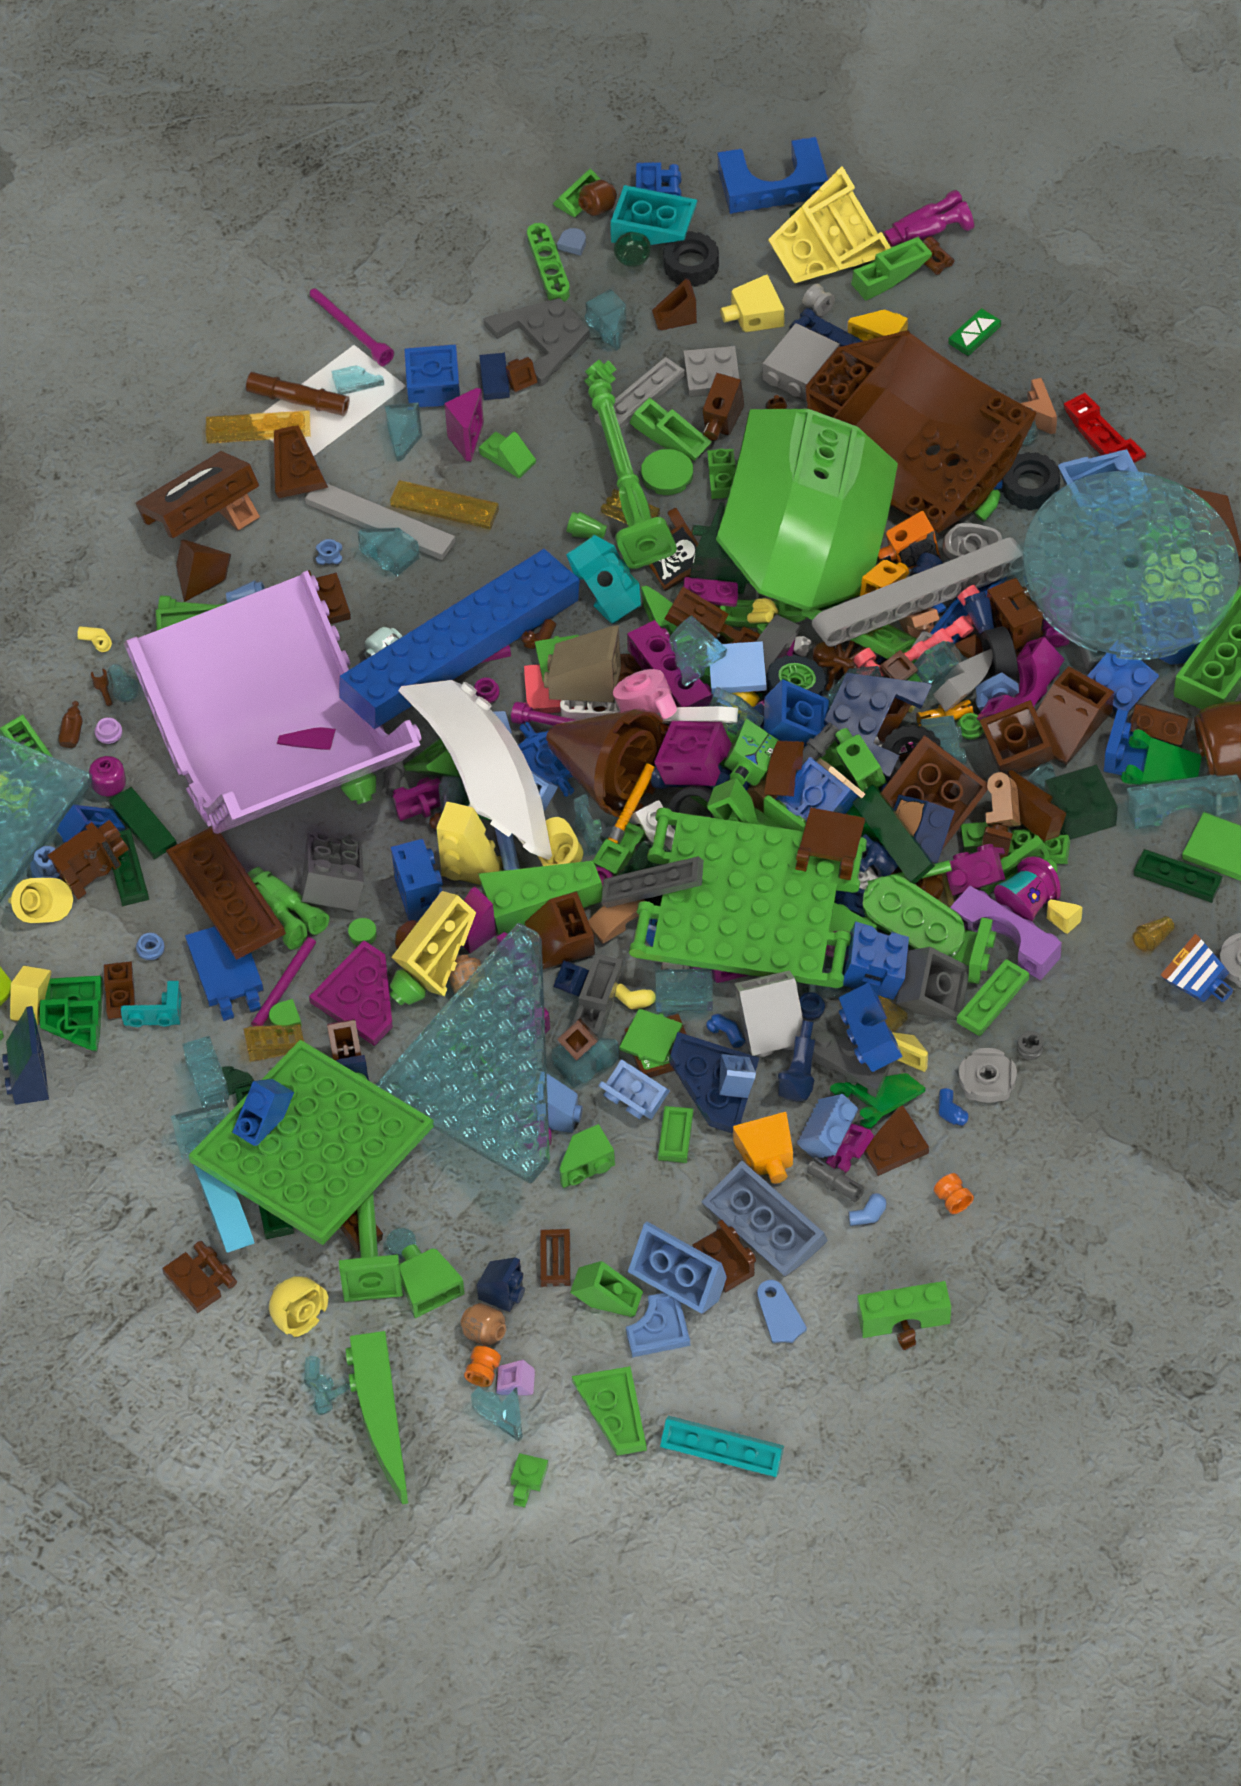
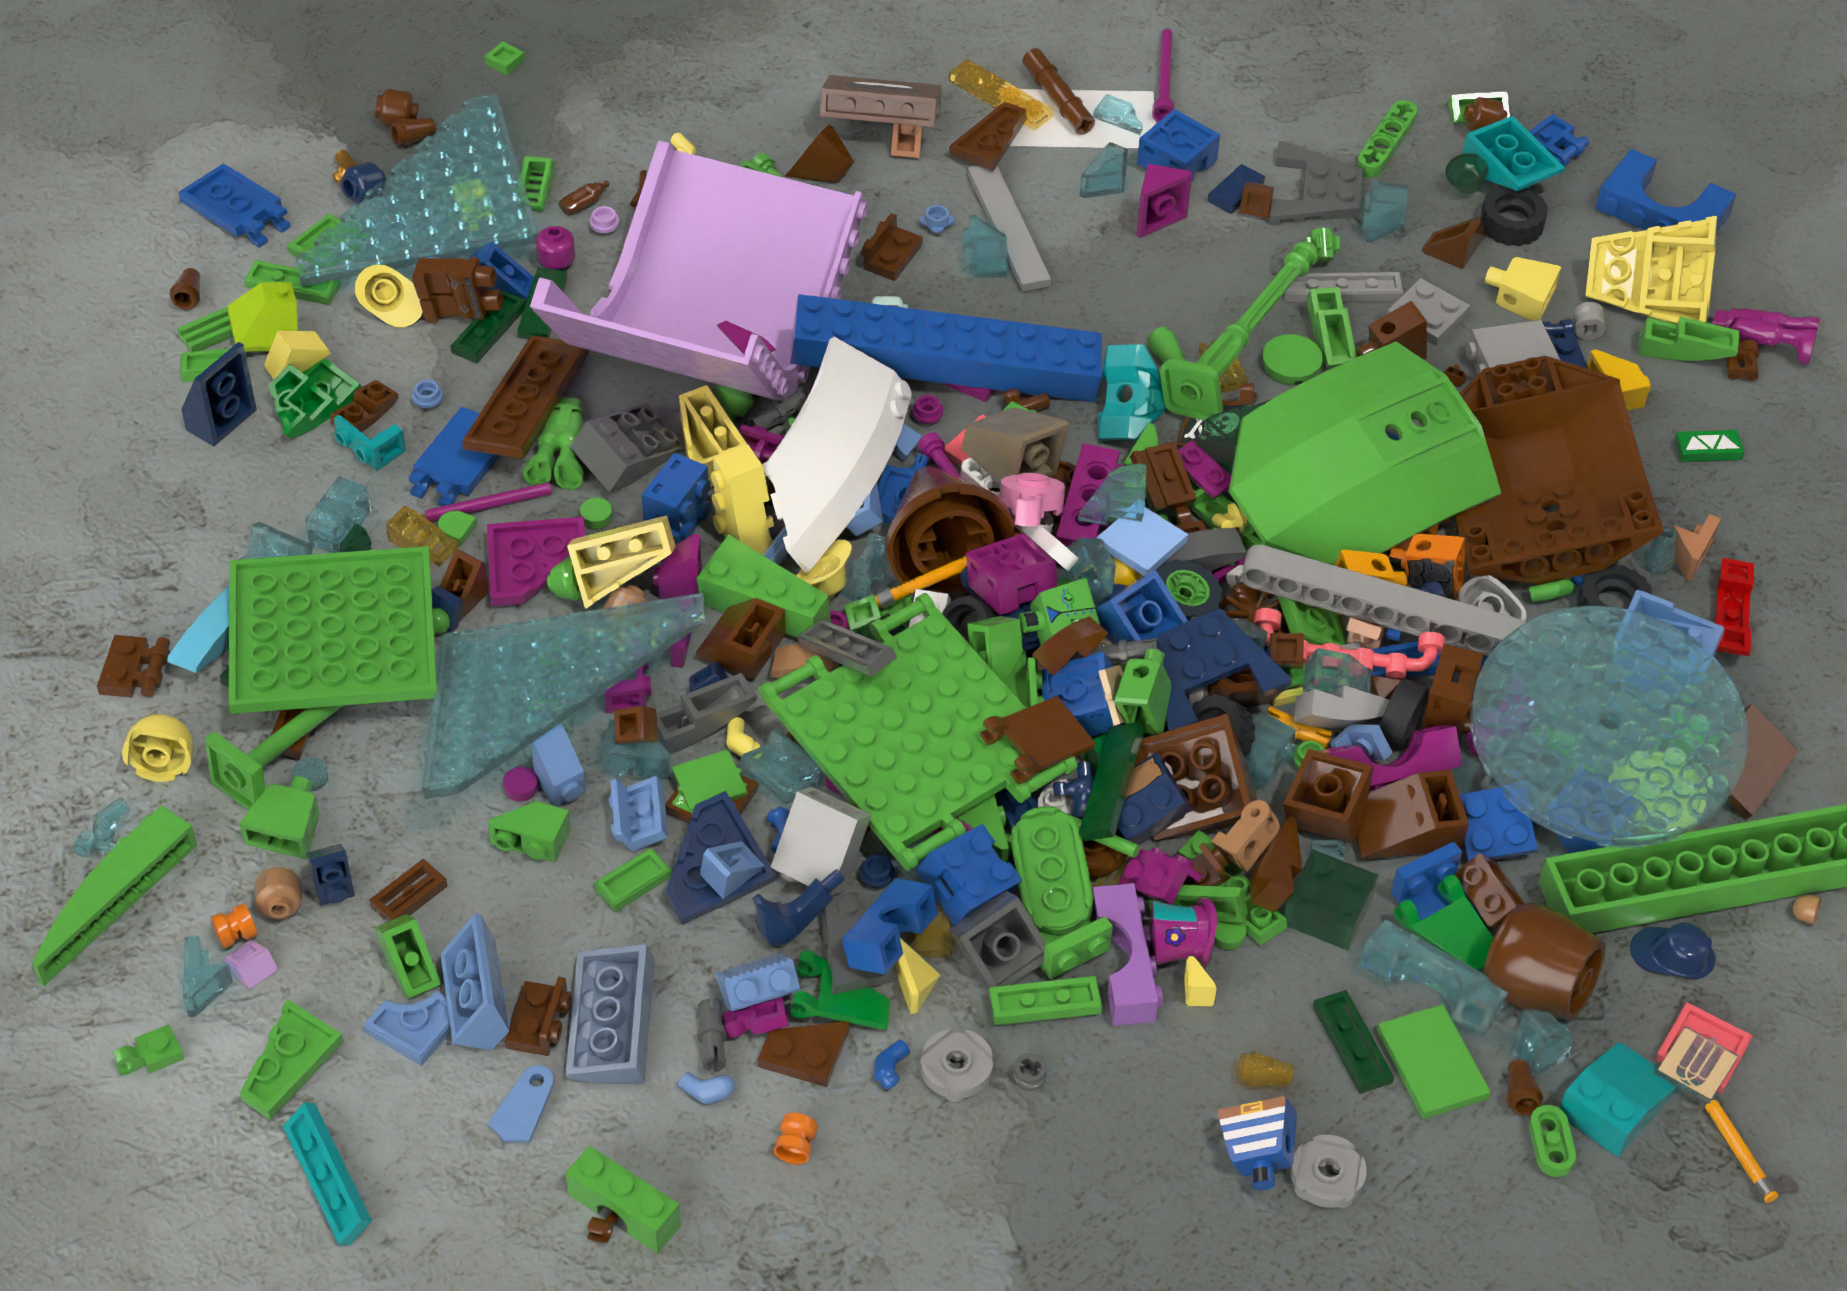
camera: 40 degrees right, 5 degrees down
(262, 1110) = (318, 568): blue slope -> none
(378, 820) = (706, 427): none -> light yellow wedge
(444, 504) = (1072, 250): clear yellow plate -> none
(508, 453) = (1174, 251): bright green slope -> none
(572, 241) = (1427, 137): sand blue tile -> none
(766, 1145) = (689, 954): light orange torso -> none
(980, 612) = (1421, 659): dark blue cone -> none

